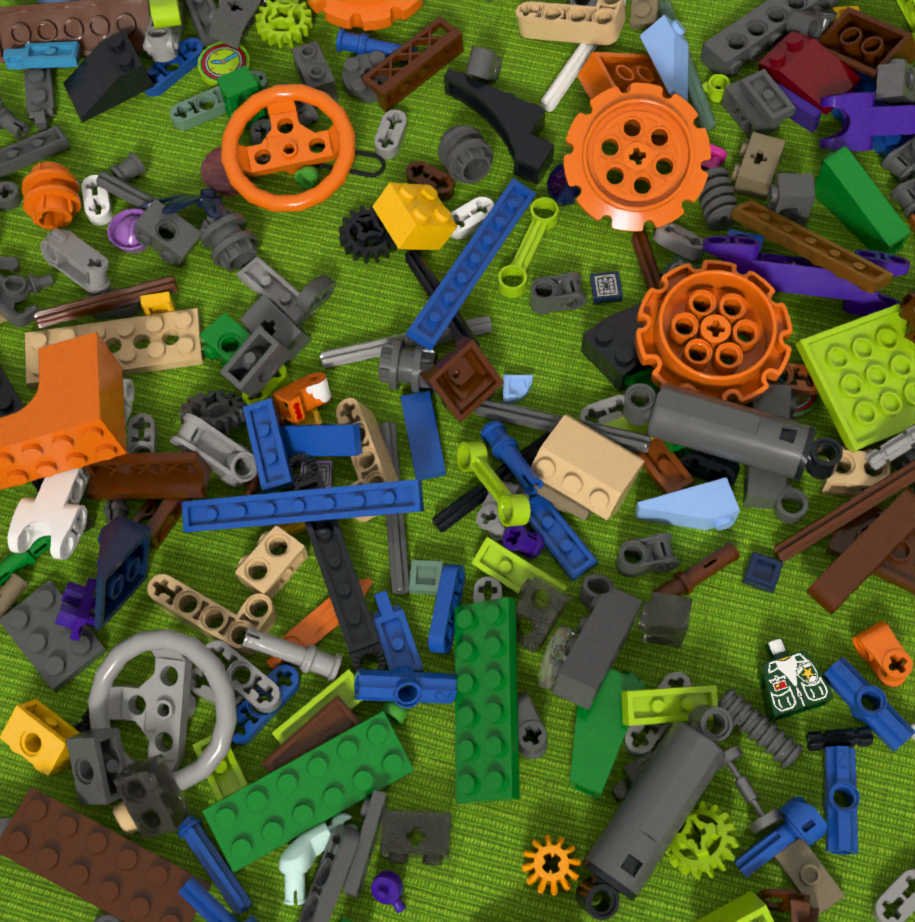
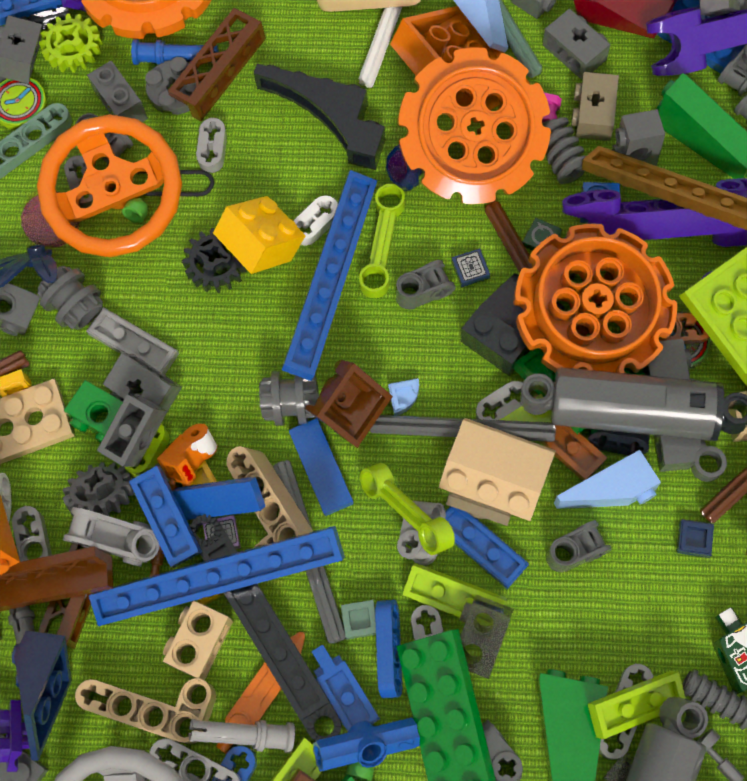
camera: 10 degrees left, 5 degrees up
(237, 88) = (41, 131): green brick -> none
(315, 293) = (175, 338): dark grey beam -> none
(373, 348) = (250, 382): light grey axle -> none
(430, 283) = (294, 306): black axle -> none
(431, 177) = (265, 186): reddish brown beam -> none
(465, 154) = (295, 153): dark grey piece -> none
(478, 493) = (413, 491): black axle -> none
(484, 64) = (292, 52): dark grey piece -> none
(506, 449) = (410, 467): blue pin -> none
(519, 539) = (455, 565): dark purple bush -> none
(553, 653) = (513, 679): clear tile -> none
(598, 641) = (554, 655): dark grey hinge -> none
(665, 619) = (613, 614): clear smoke brick -> none
(680, 241) = (535, 203): light grey beam -> none
(685, 581) = (621, 566): reddish brown pin -> none
(716, 86) = (534, 22): lime plate -> none
(767, 97) = (591, 33): dark grey plate -> none
(805, 113) = (620, 35): dark purple tile -> none

